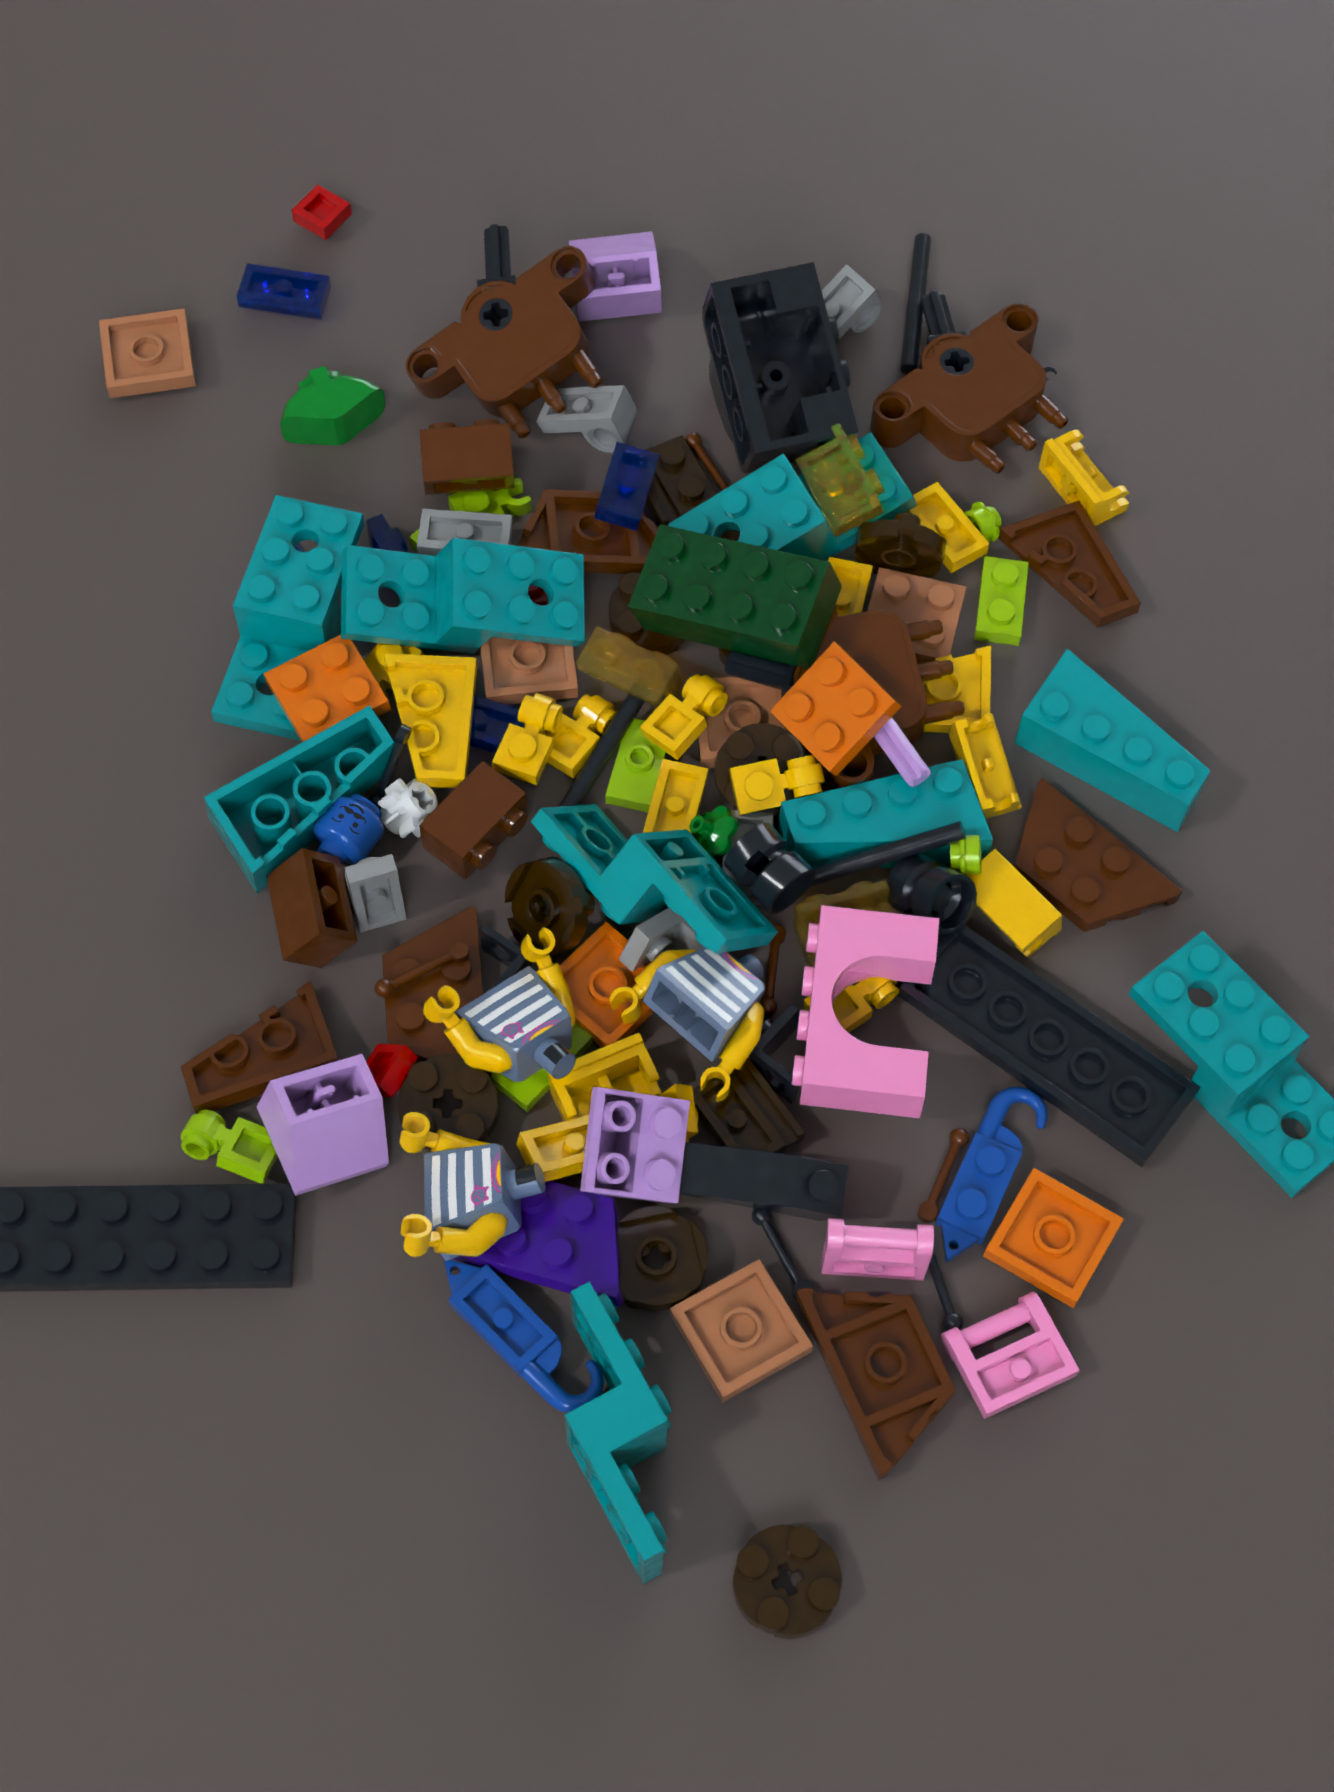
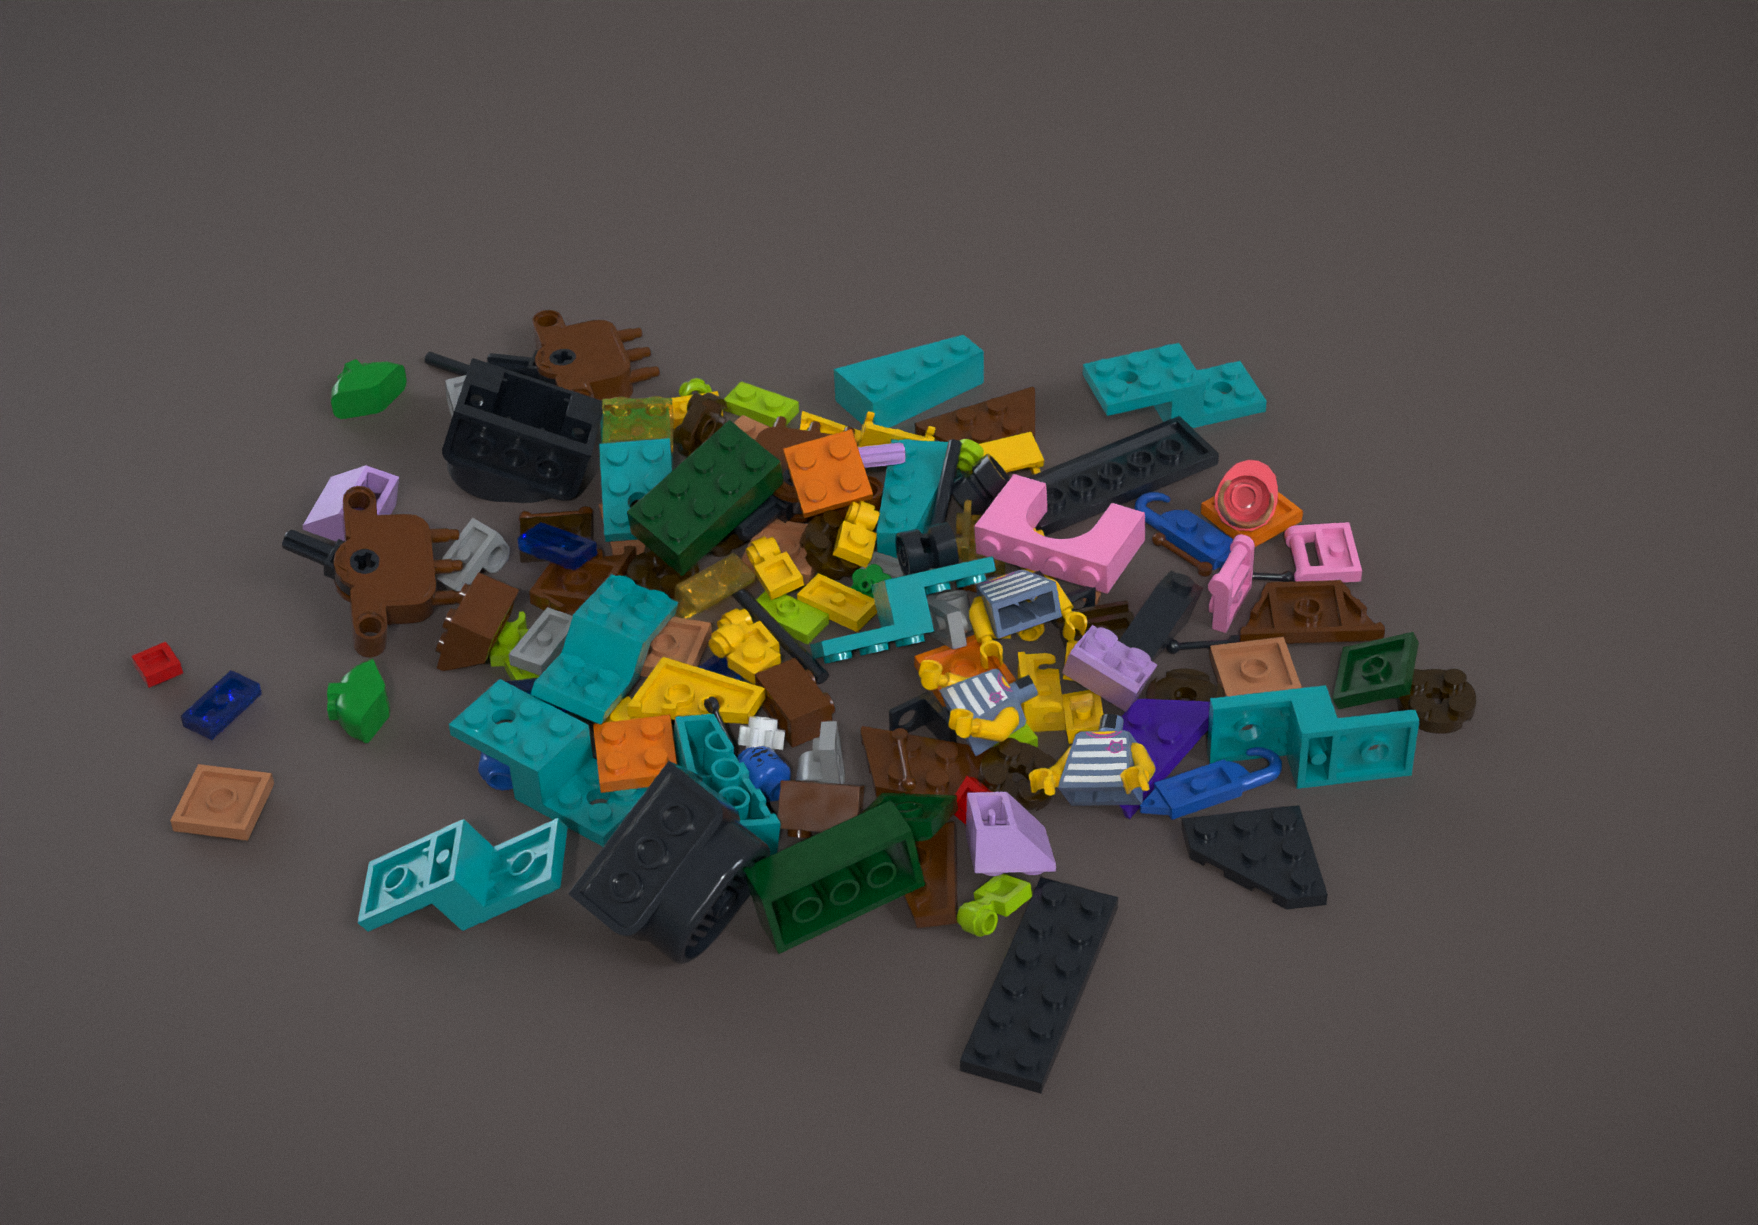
camera: 65 degrees left, 20 degrees down
(87, 604) = (463, 875): none -> teal bracket
(118, 789) = (673, 867): none -> black brick
(183, 957) = (834, 876): none -> dark green brick
(327, 1003) = (922, 812): none -> dark green plate
(428, 1430) = (1261, 852): none -> black plate
(567, 898) = (871, 665): dark brown plate -> none
(793, 1484) = (1376, 670): none -> dark green plate
(830, 202) = (366, 388): none -> green piece
(1027, 1218) = (1247, 495): none -> coral piece
(1074, 561) = (755, 360): reddish brown wing -> none
(1079, 479) = (691, 341): yellow hinge -> none

